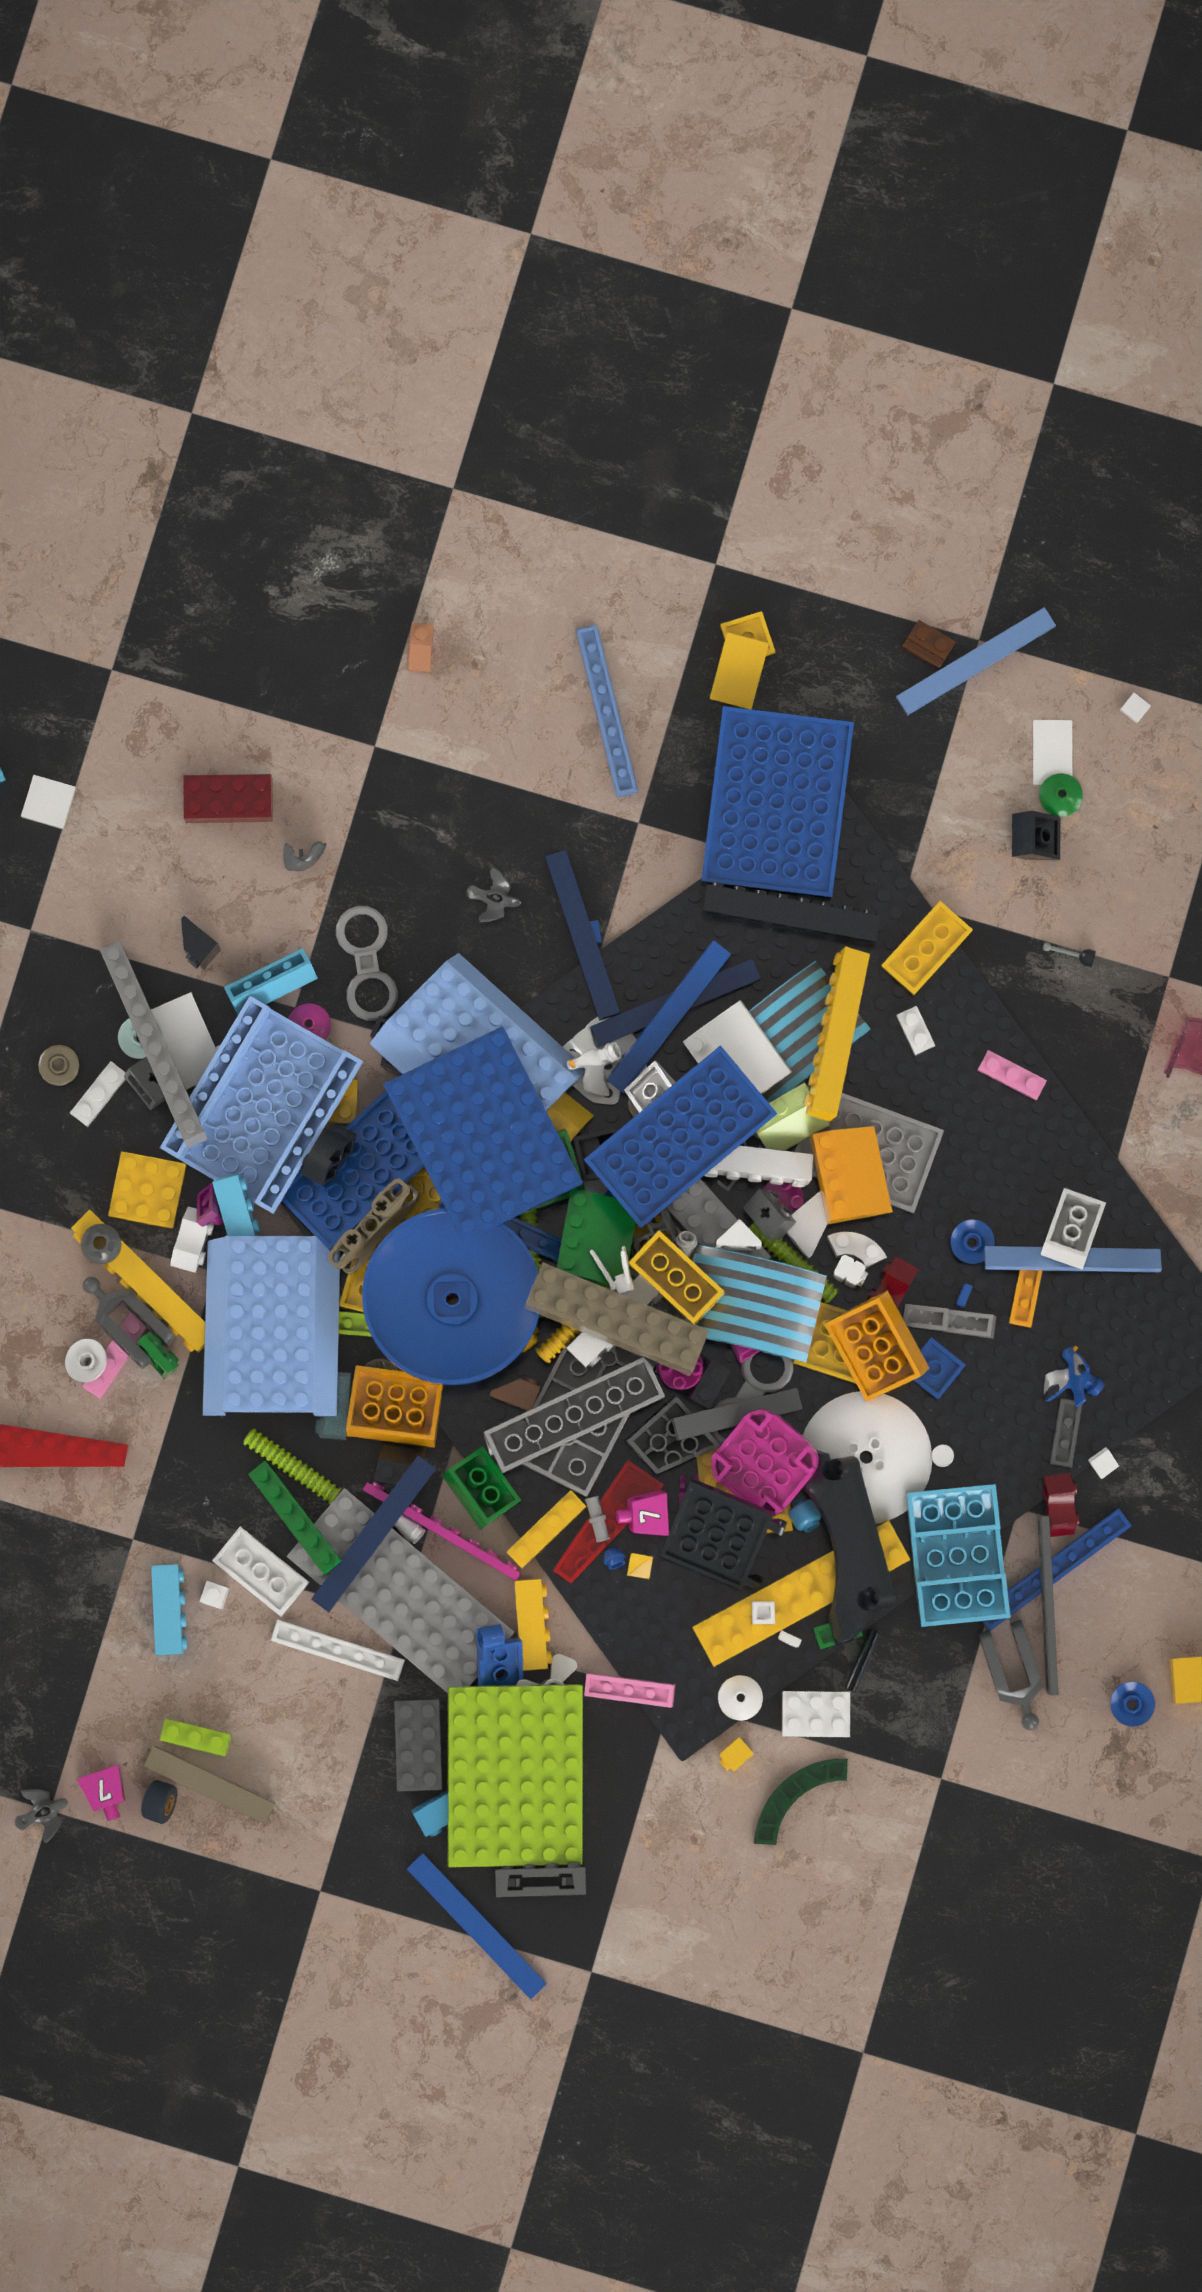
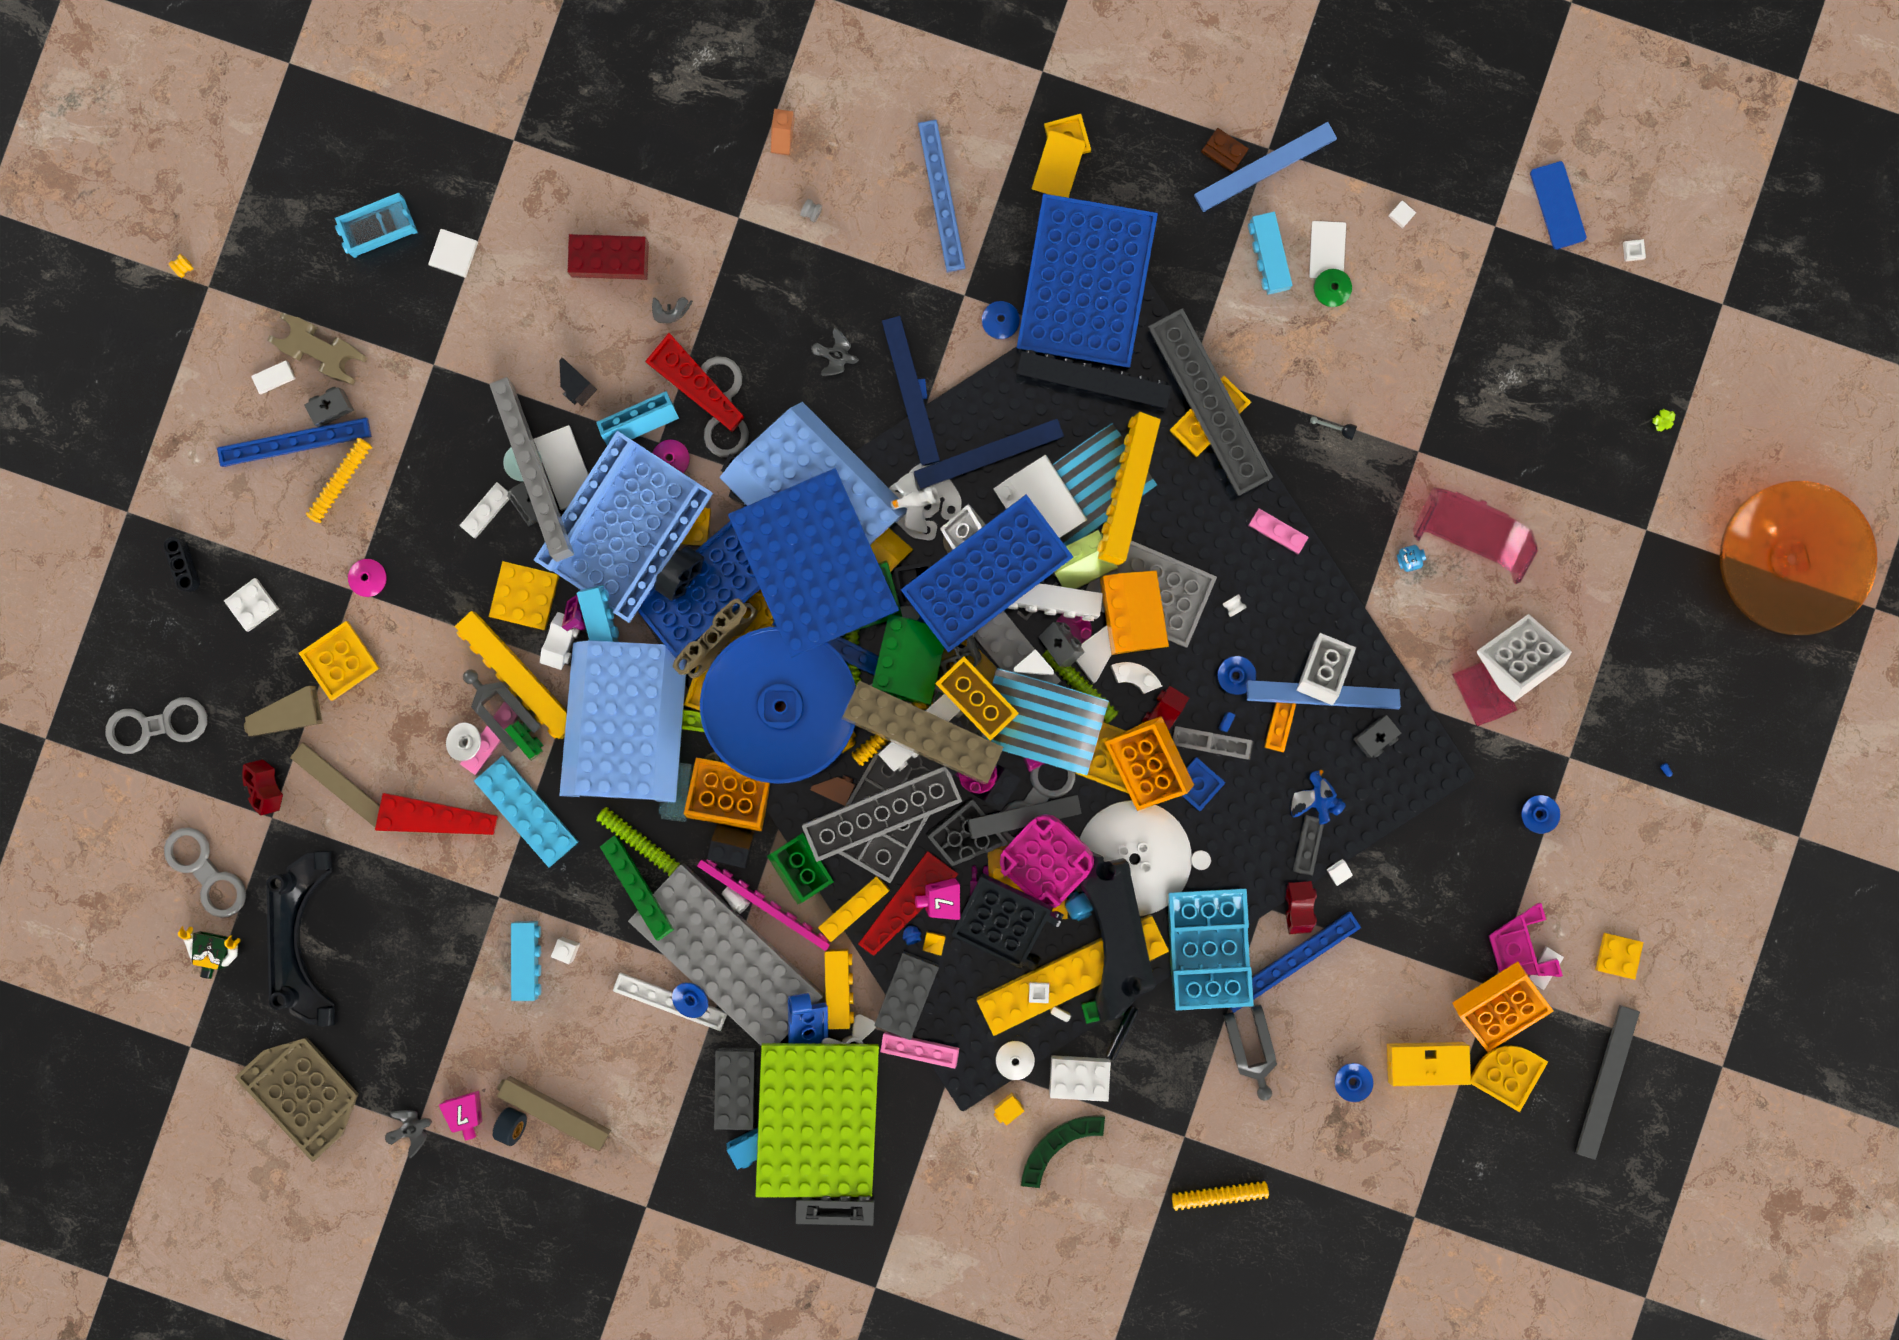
camera: 10 degrees right, 5 degrees up
(58, 1065) = (452, 483): dark tan wheel -> none
(109, 1252) = (488, 645): dark grey piece -> none
(161, 1438) = (526, 811): none -> medium azure plate
(195, 1737) = (543, 1072): lime brick -> none
(260, 1571) = (607, 930): white tile -> none
(319, 925) = (685, 374): none -> red wing
(358, 1652) = (689, 1006): none -> blue dish
(373, 1534) = (703, 906): dark blue tile -> none
(458, 735) = (811, 210): none -> light grey wheel
(476, 1926) = (778, 1245): blue tile -> none
(597, 1519) = (898, 902): light grey pin -> none
(611, 1626) = (906, 995): none -> dark grey brick
(623, 1281) = (930, 699): white plant -> none
(668, 1016) = (982, 465): blue tile -> none
(681, 860) = (998, 329): none -> blue dish
(686, 1242) = (987, 666): white cone -> none
(850, 1272) = (1129, 698): white brick -> none
(915, 1030) = (1196, 488): white plate -> none
(925, 932) = (1210, 402): none -> dark grey plate
(965, 1162) = (1234, 605): none -> white wheel
(985, 1843) = (1220, 1195): none -> yellow piece
(986, 759) = (1270, 253): none -> medium azure brick
(1035, 836) = (1309, 322): black slope -> none
(1047, 1605) = (1285, 992): dark grey tile -> none
(1125, 1308) = (1382, 726): none -> dark grey brick
(1166, 1099) = (1411, 558): none -> dark azure head

